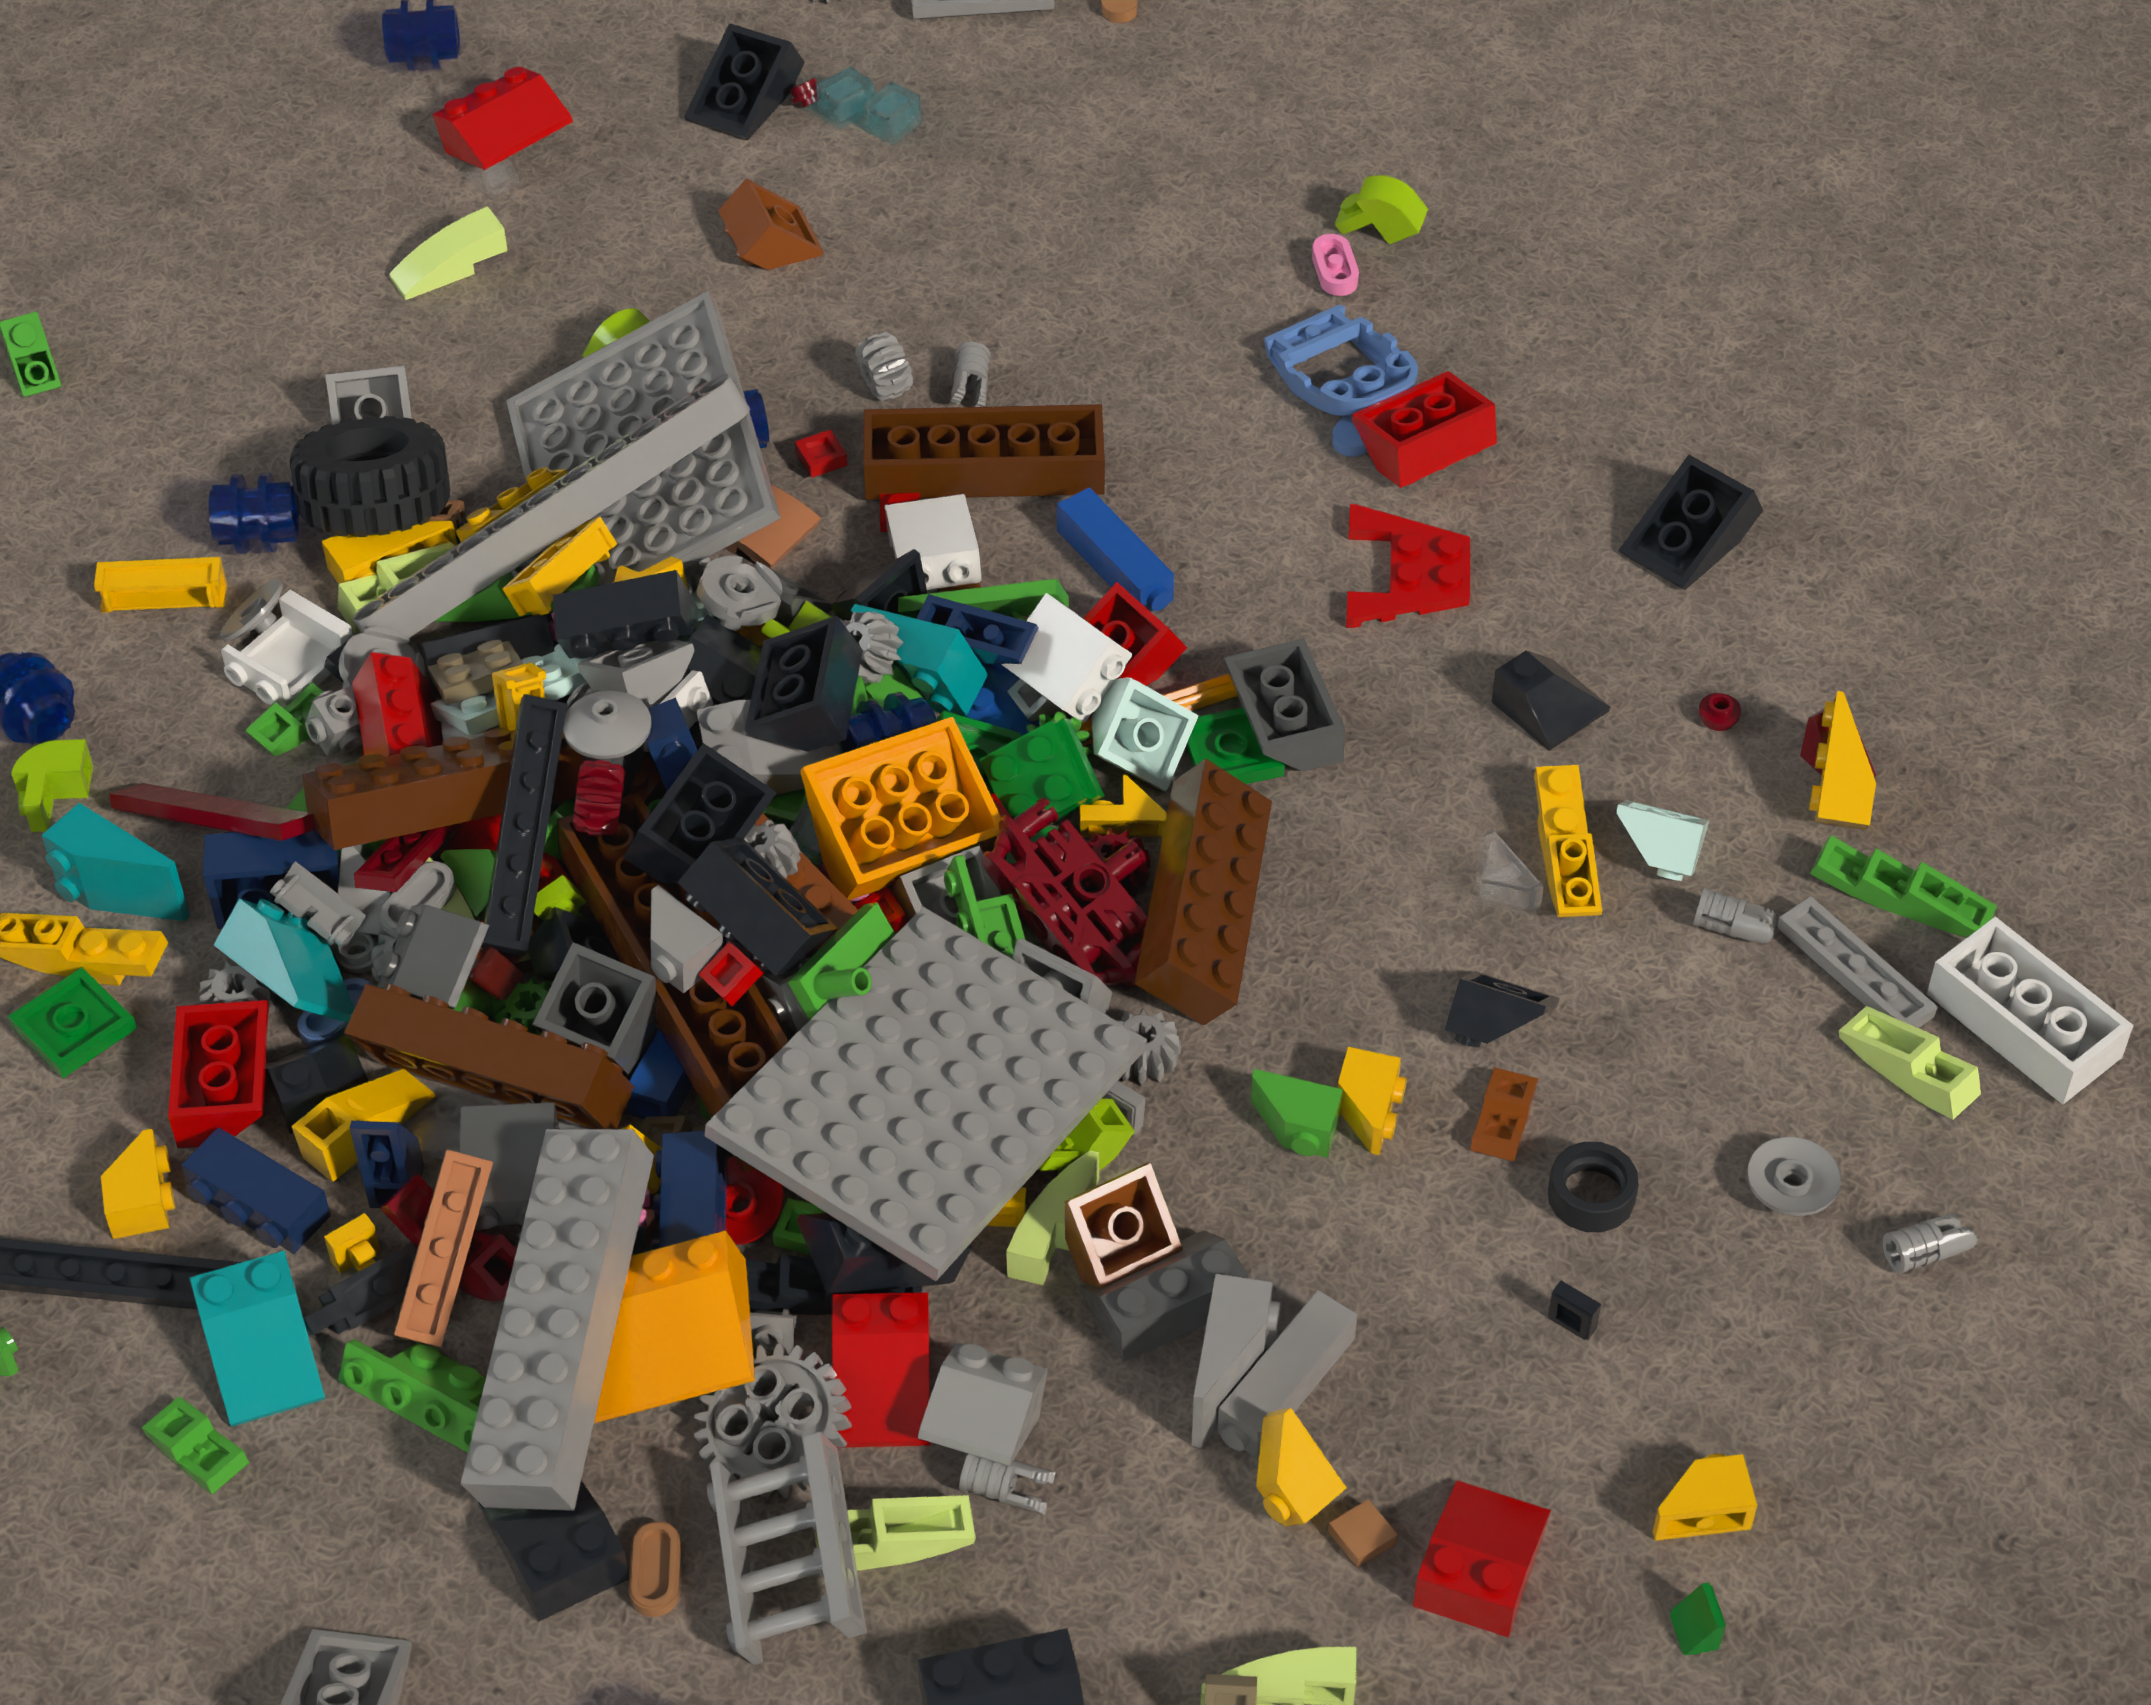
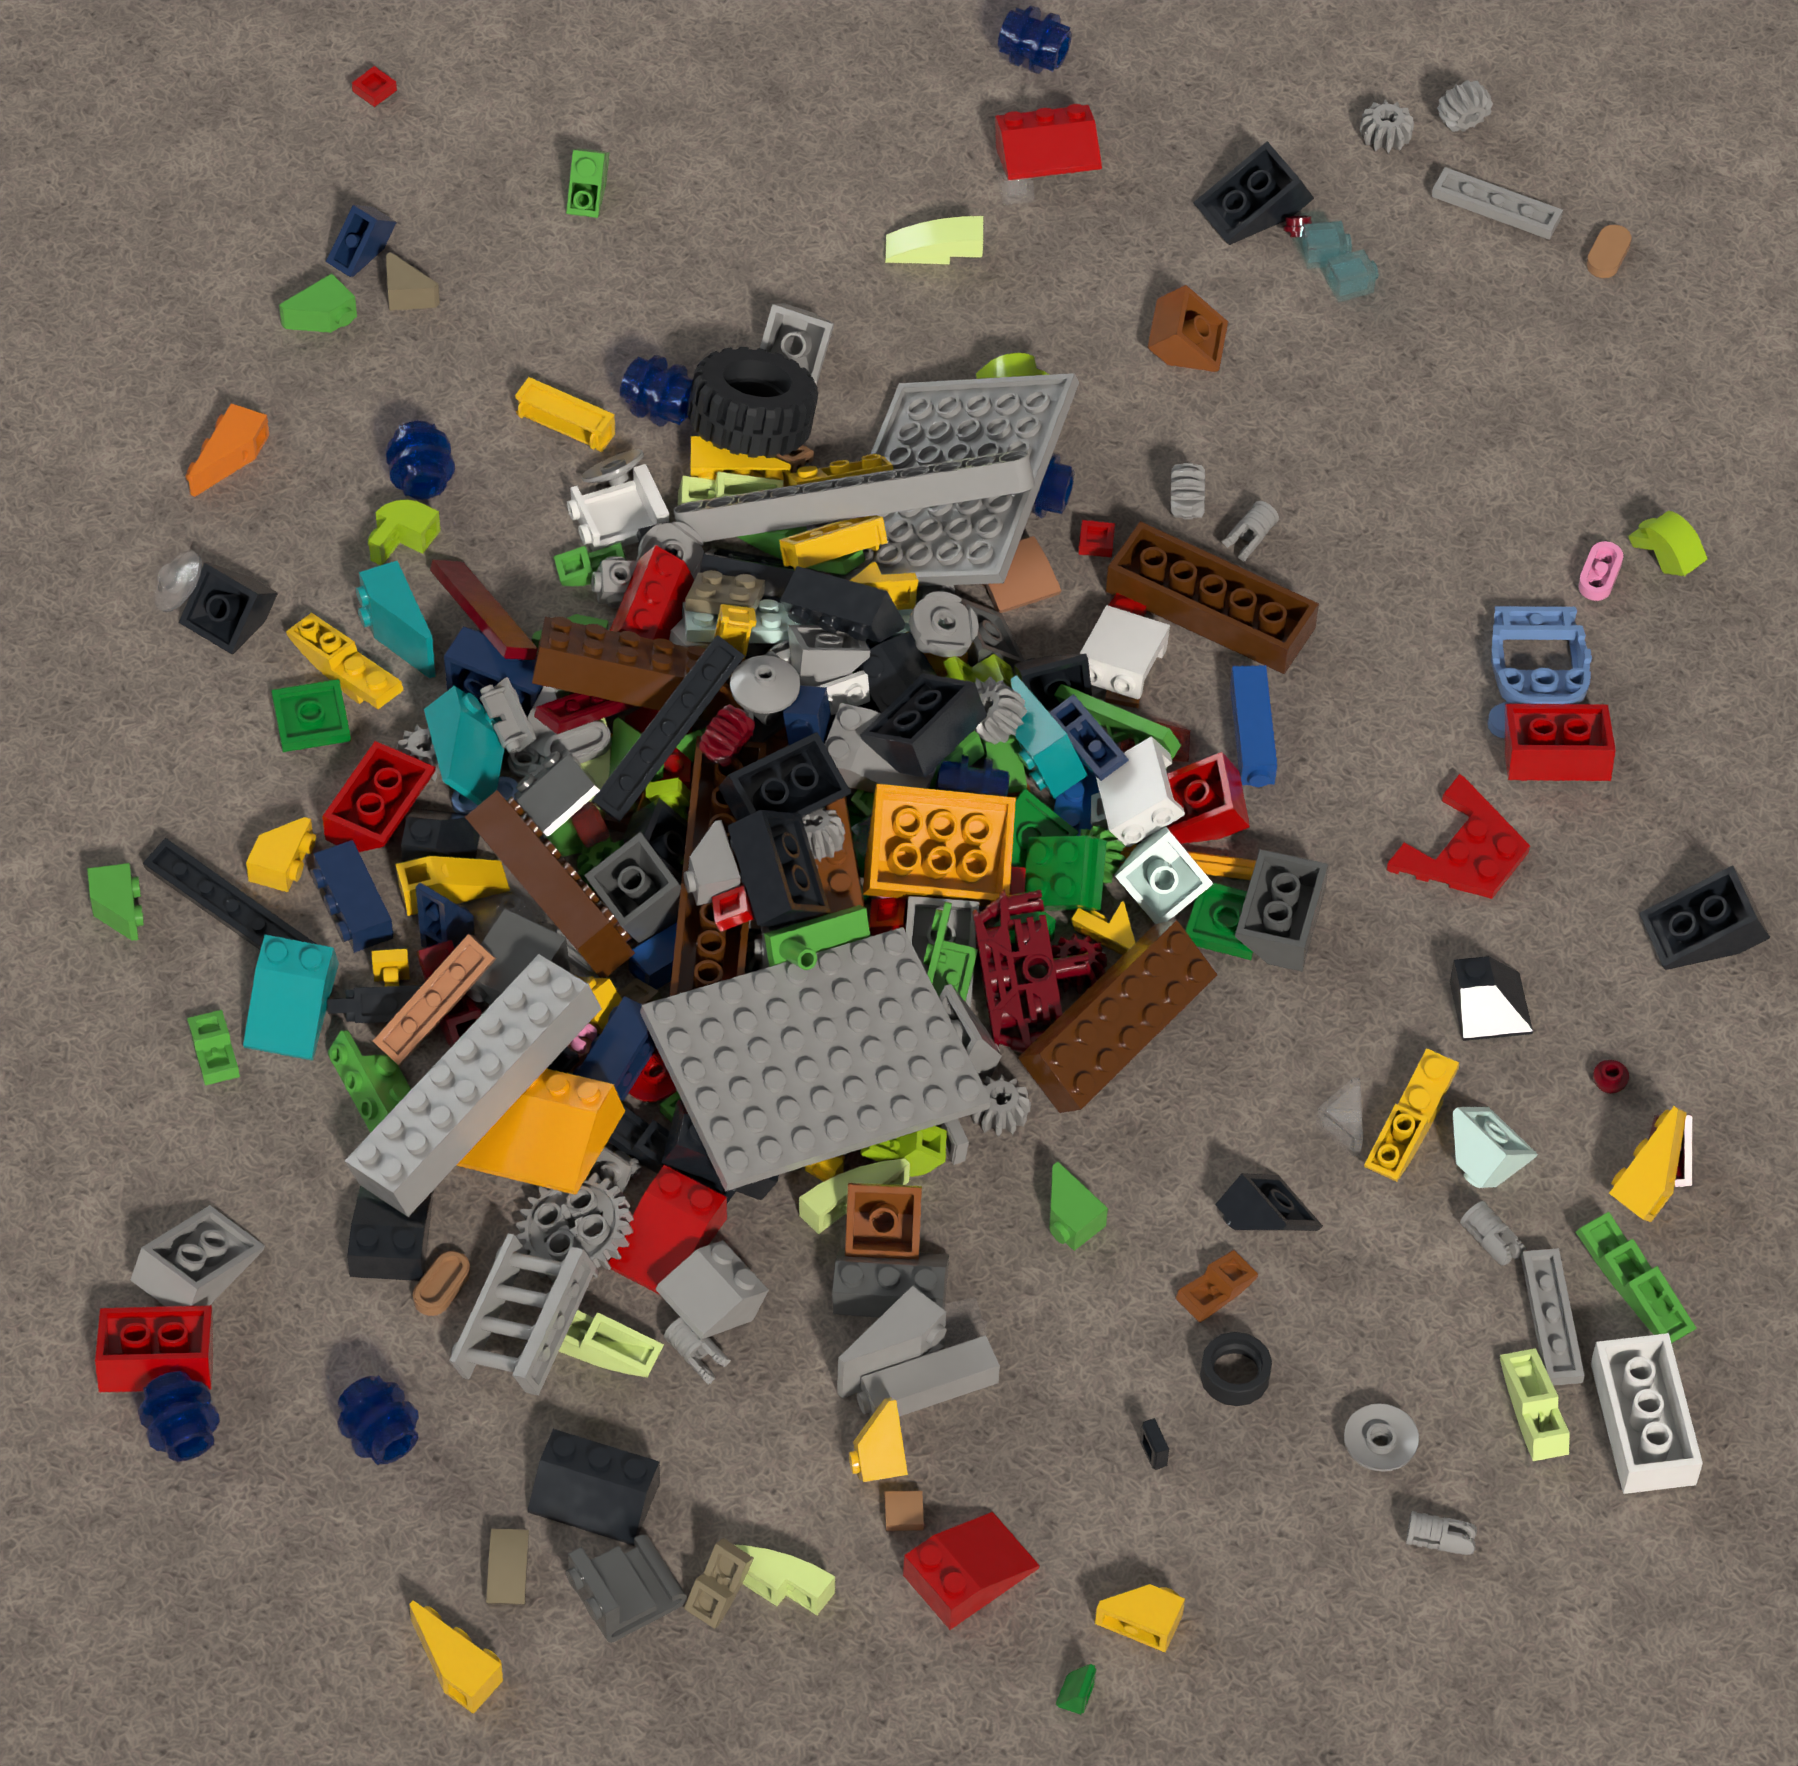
camera: 30 degrees right, 5 degrees up
(1369, 1090) = (1131, 1220): yellow slope -> none

